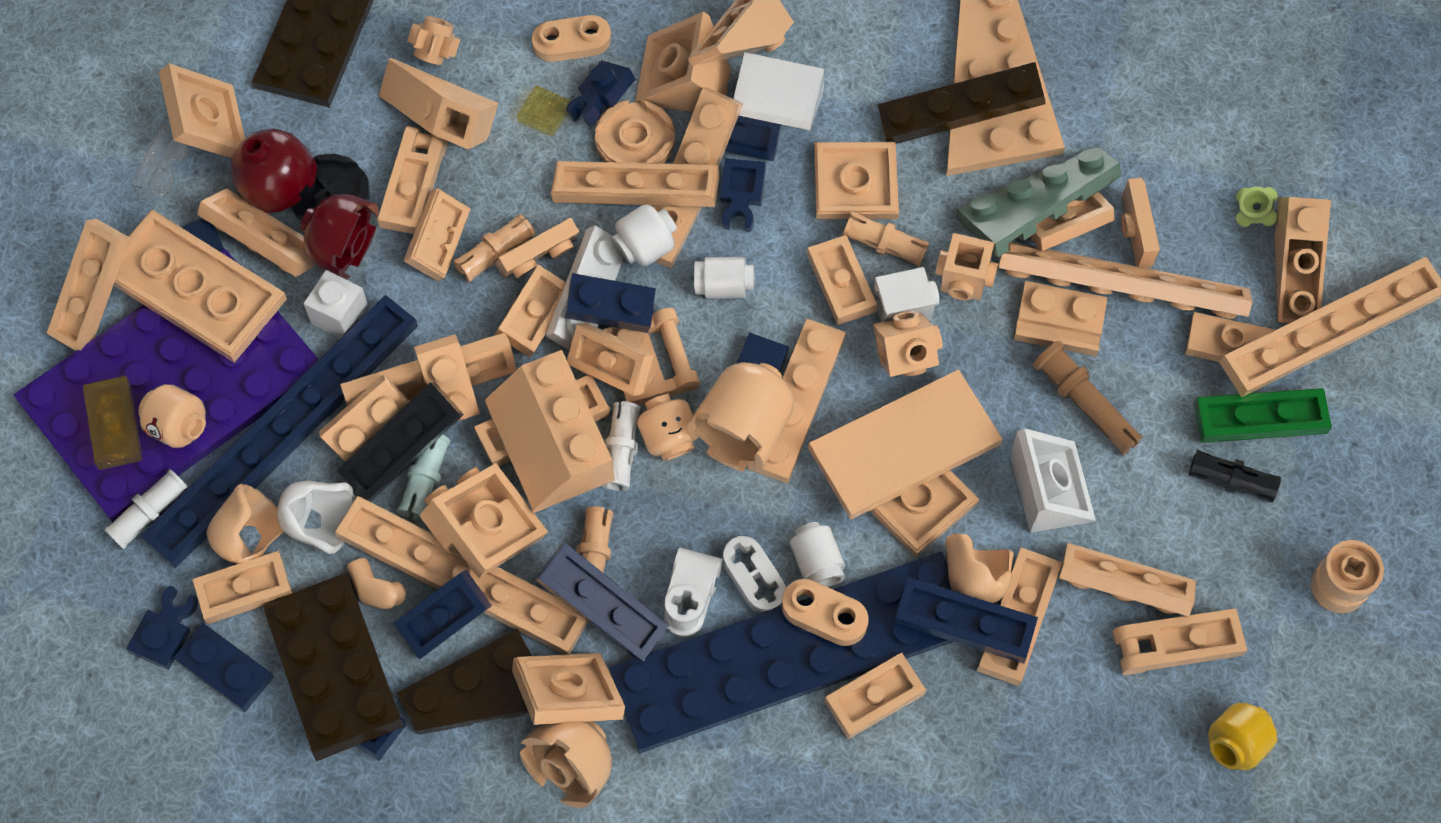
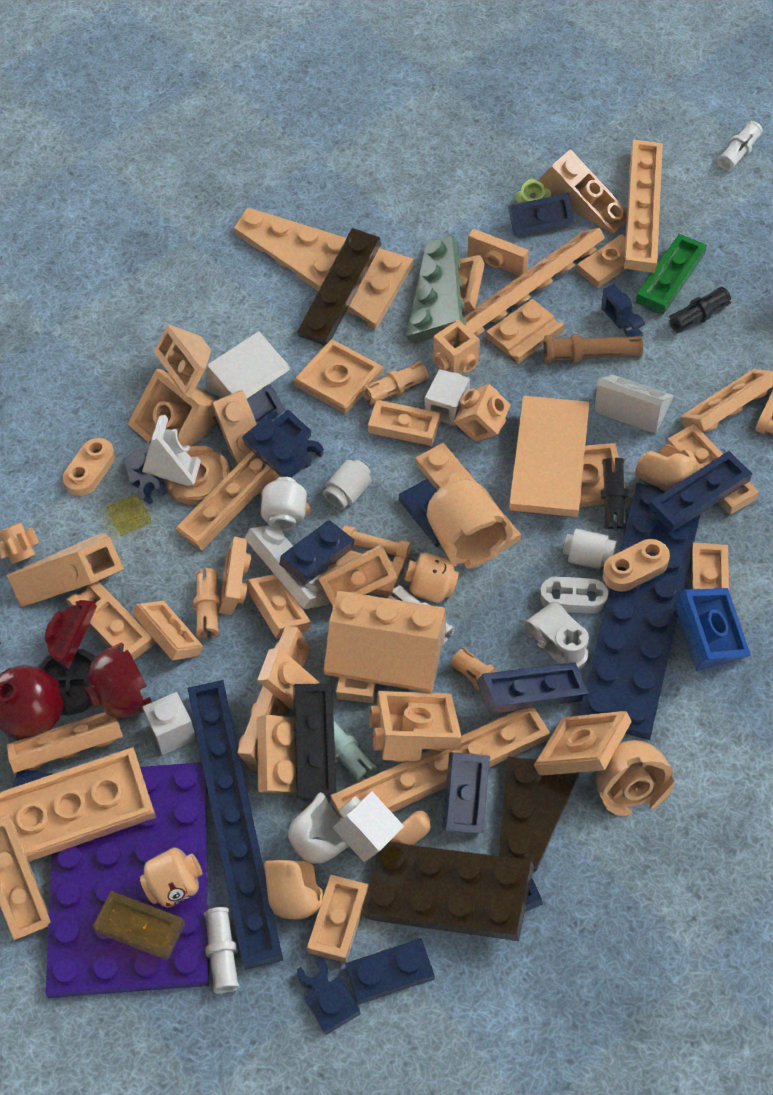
camera: 50 degrees left, 10 degrees down
(336, 546) = (367, 825): none -> white brick
(368, 151) = (67, 631): none -> dark red plate
(623, 95) = (169, 458): none -> white slope
(699, 184) = (276, 448): none -> dark blue plate
(801, 732) = (711, 627): none -> blue slope
(903, 536) = (614, 493): none -> black pin
(1166, 390) = (618, 309): none -> dark blue plate
(1233, 232) = (541, 214): none -> dark blue plate

